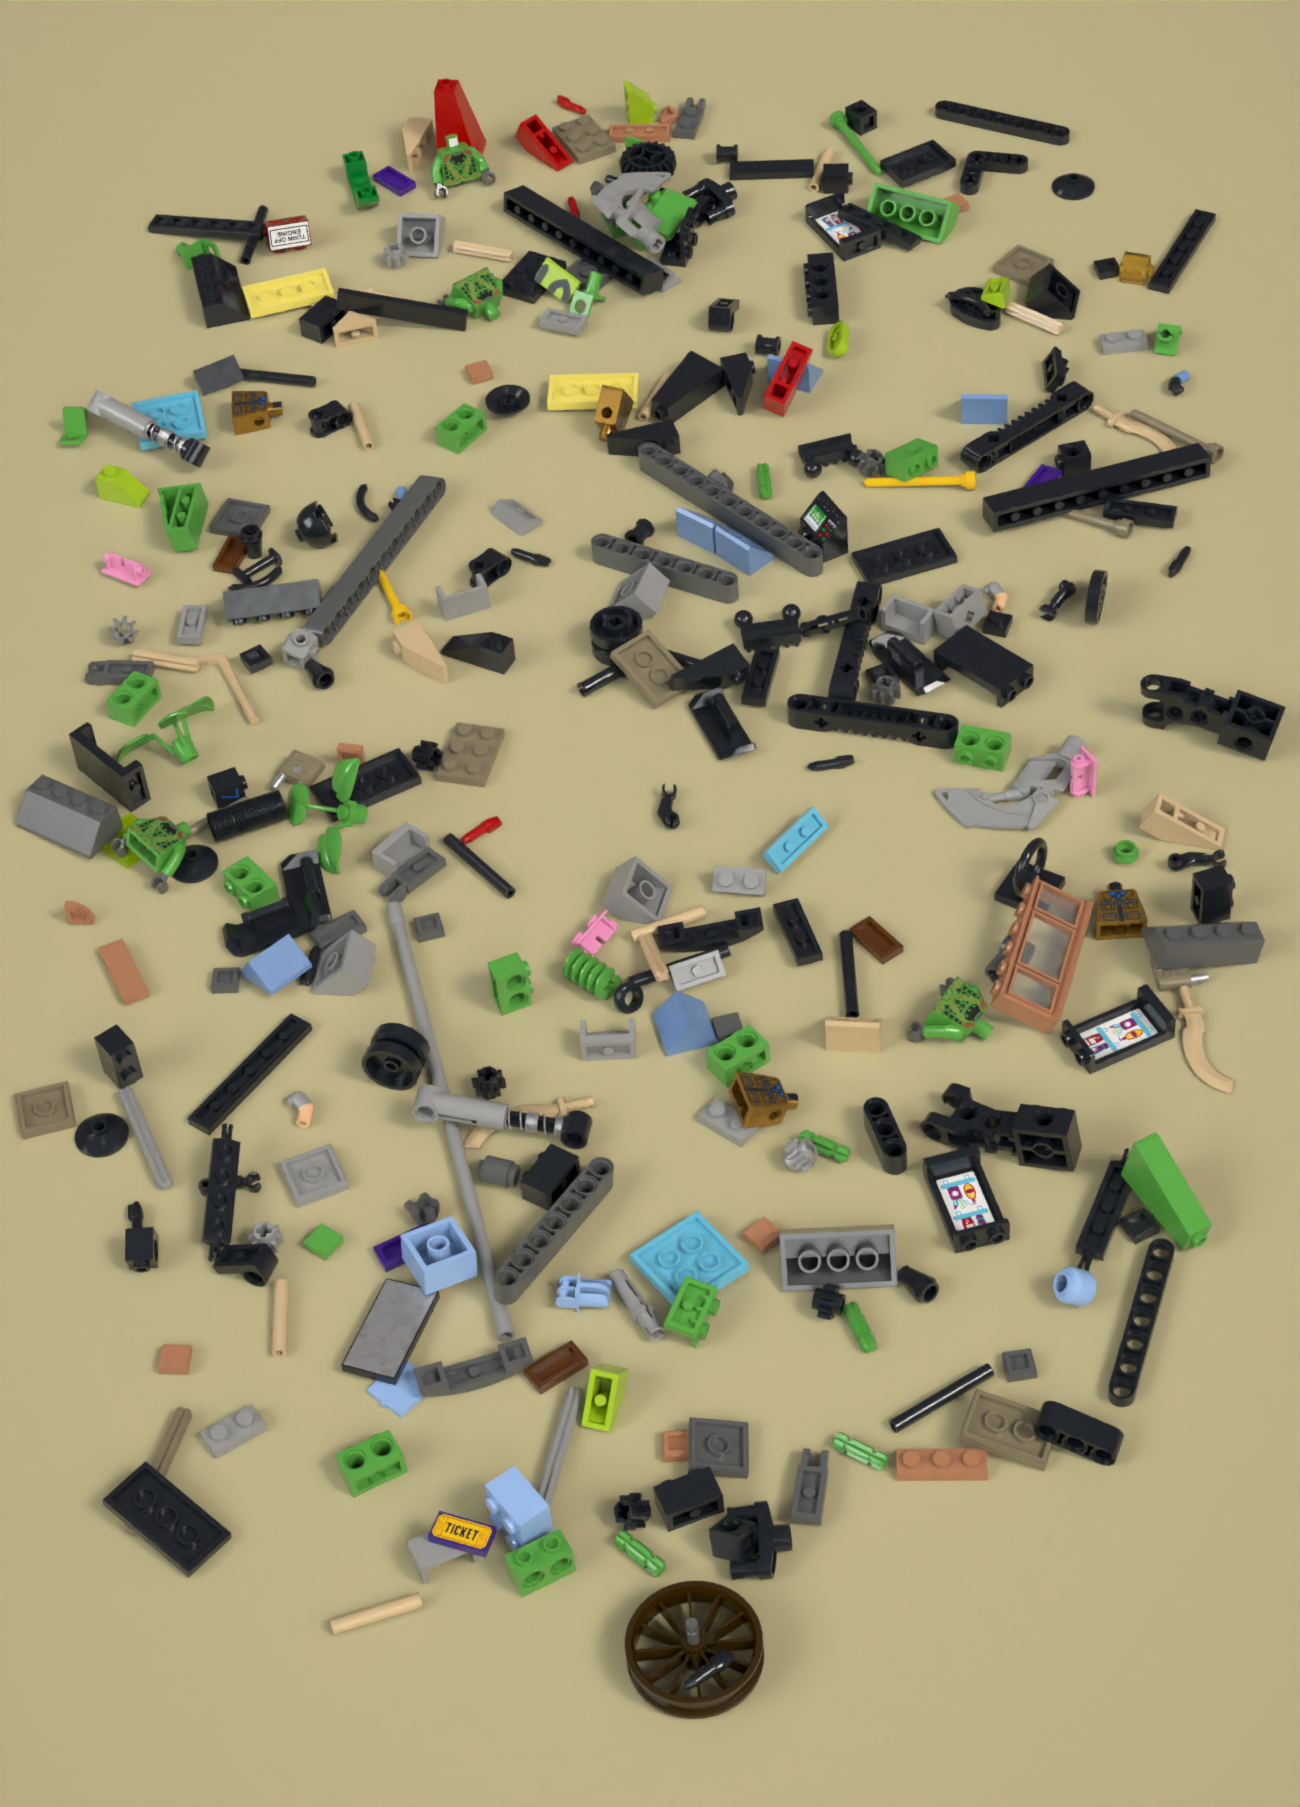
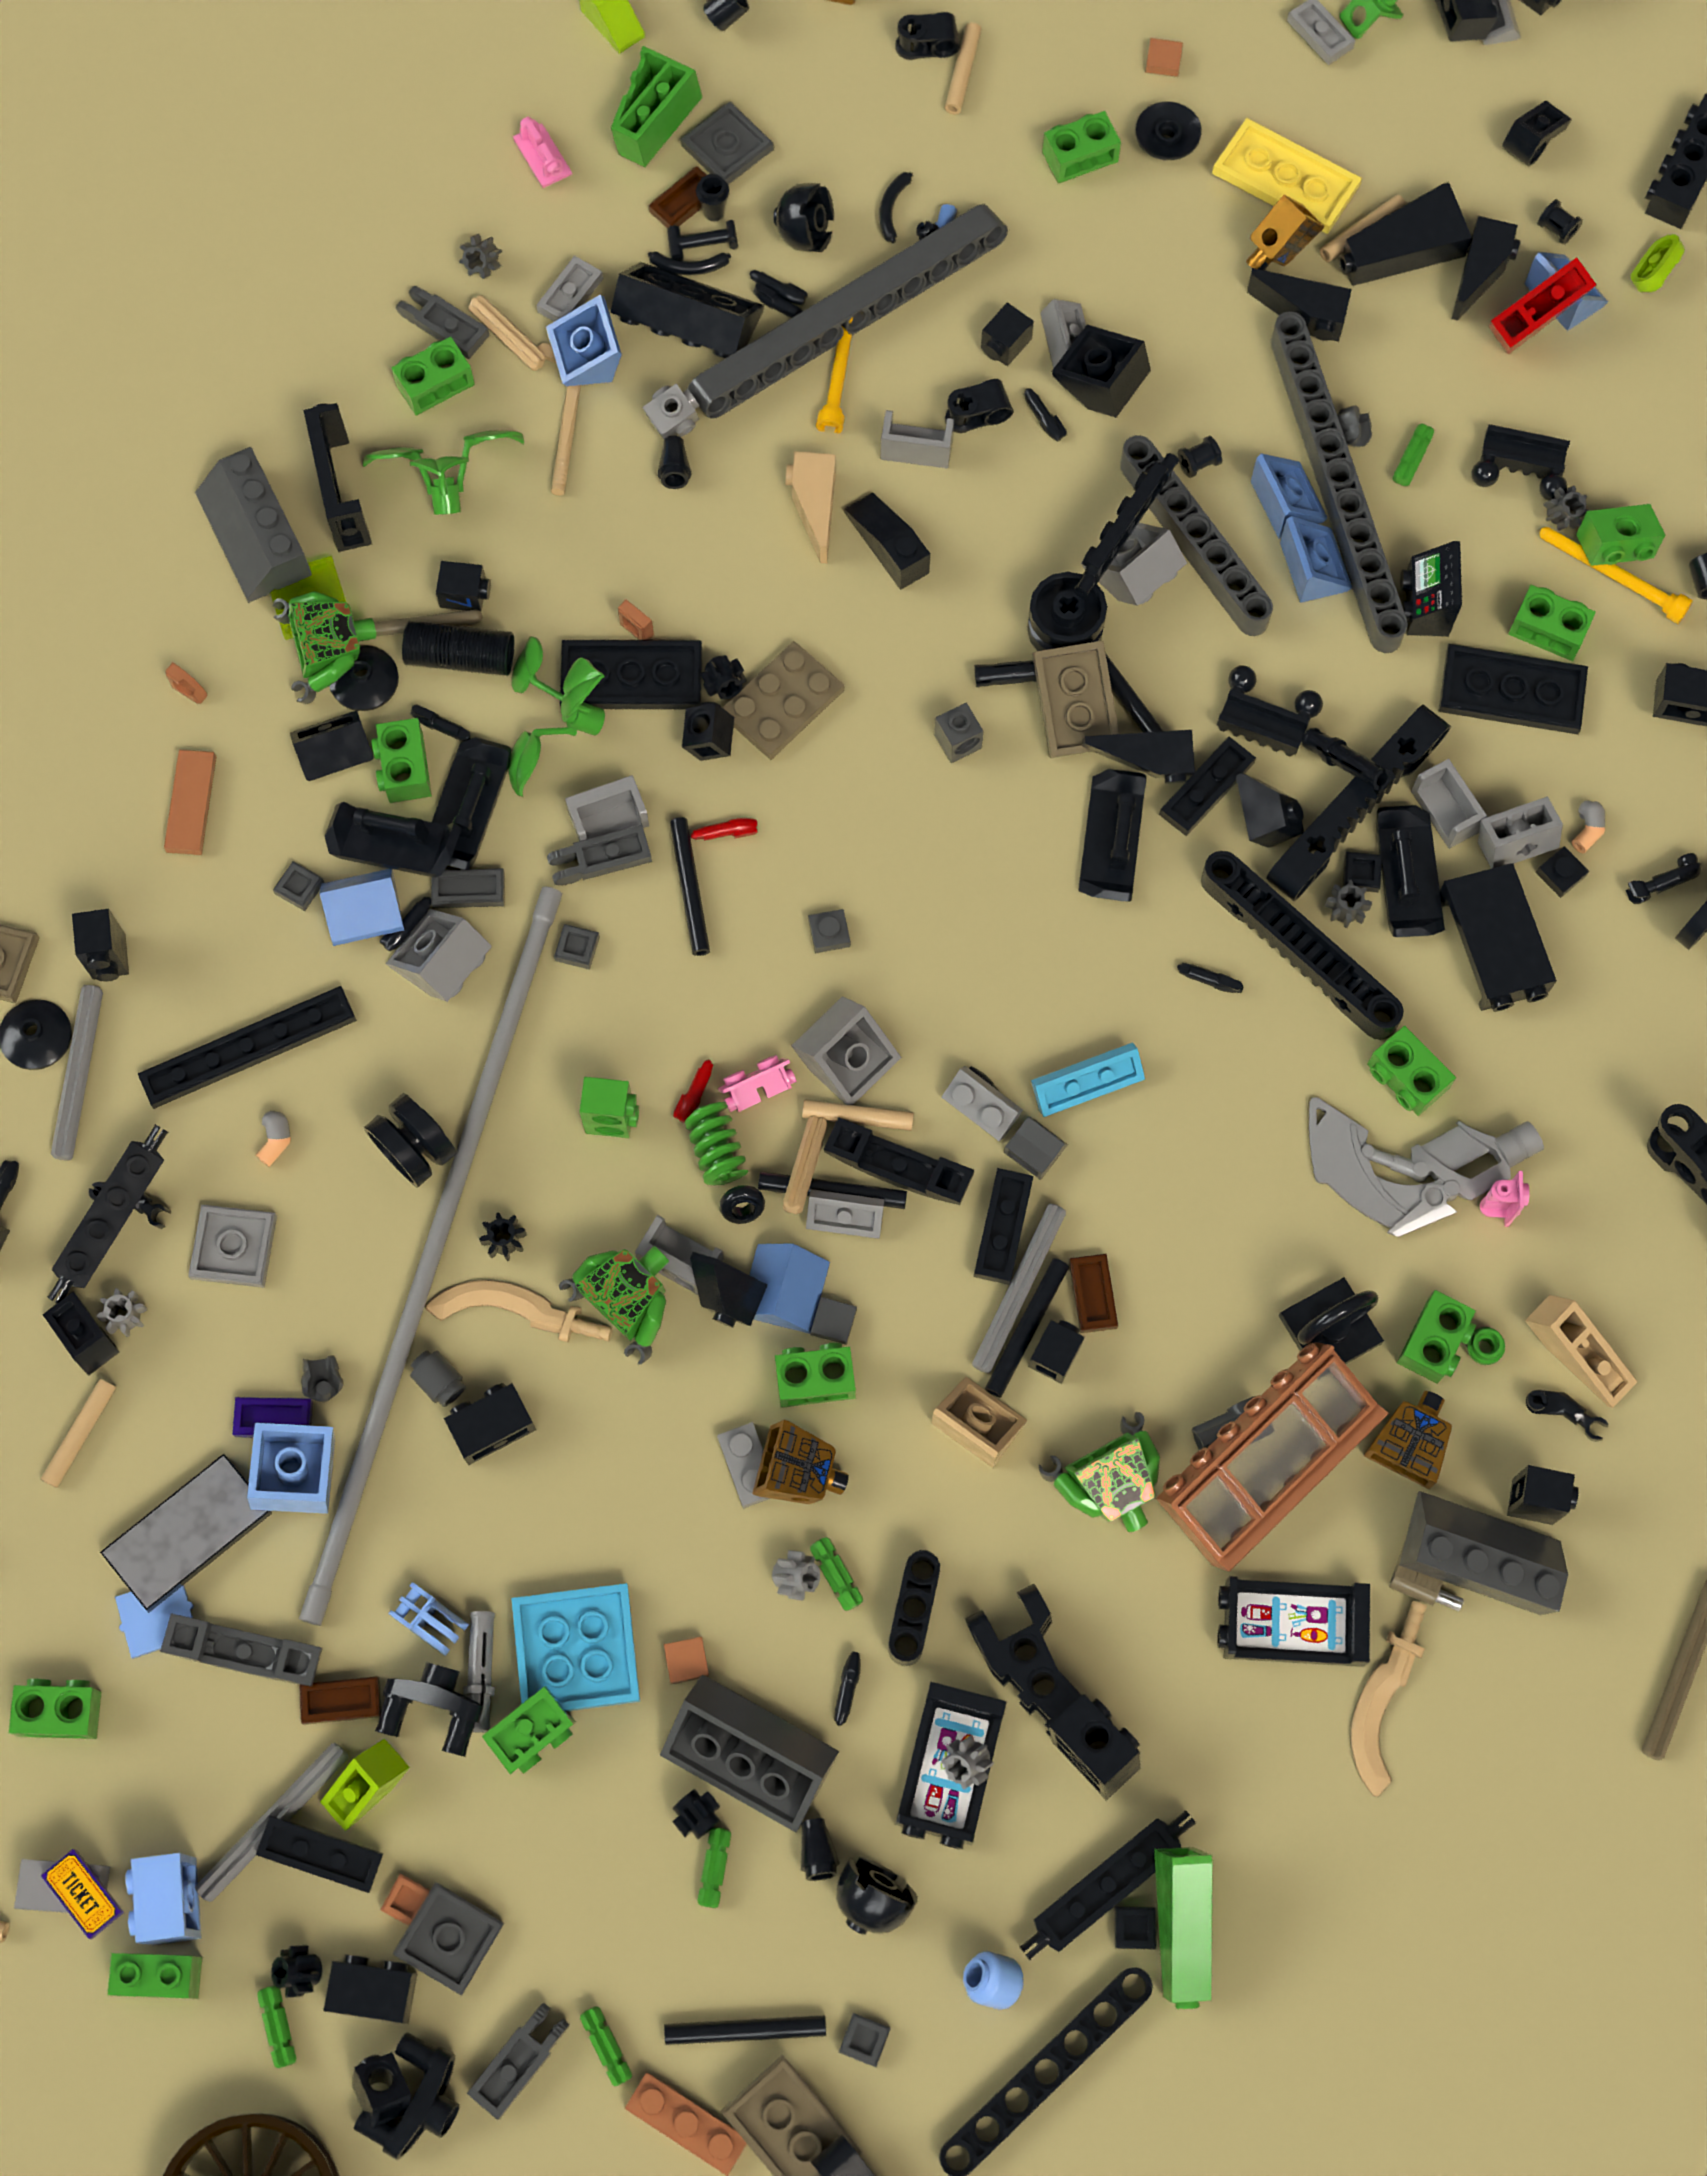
camera: 25 degrees right, 25 degrees up
(199, 901) = (331, 746): none -> black panel
(223, 638) = (585, 344): none -> medium blue slope
(256, 659) = (613, 394): black plate -> none
(265, 861) = (434, 721): none -> black piece
(298, 769) = (564, 608): dark tan piece -> none
(323, 1241) = (187, 1352): bright green tile -> none
(324, 576) = (774, 301): none -> black piece
(328, 569) = (786, 291): none -> black piece
(434, 1104) = (414, 1246): piece -> none
(436, 784) = (708, 731): none -> black brick
(480, 528) = (1006, 334): none -> black brick
(552, 517) = (1103, 369): none -> black slope
(553, 1231) = (431, 1526): dark grey beam -> none
(557, 962) = (692, 1099): none -> red piece
(582, 847) = (829, 931): none -> dark grey plate
(588, 1064) = (624, 1293): none -> torso
(592, 717) = (958, 733): none -> dark grey brick
(602, 1444) = (319, 1854): none -> black plate
(616, 1323) = (434, 1689): none -> black connector
(620, 569) = (1129, 515): none -> black plate
(650, 1032) = (726, 1290): none -> black slope
(665, 812) = (960, 935): black arm -> none
(787, 886) = (1035, 1148): none -> dark grey piece
(807, 667) = (1268, 813): none -> black slope
(830, 960) = (1019, 1288): none -> light grey axle
(873, 1194) = (849, 1680): none -> black piece
(876, 973) = (1056, 1350): none -> black brick
(903, 516) = (1548, 631): none -> bright green brick
(970, 1284) = (872, 1898): none -> black cylinder
(982, 1191) = (967, 1762): none -> light grey gear
(1094, 859) = (1430, 1333): none -> bright green brick

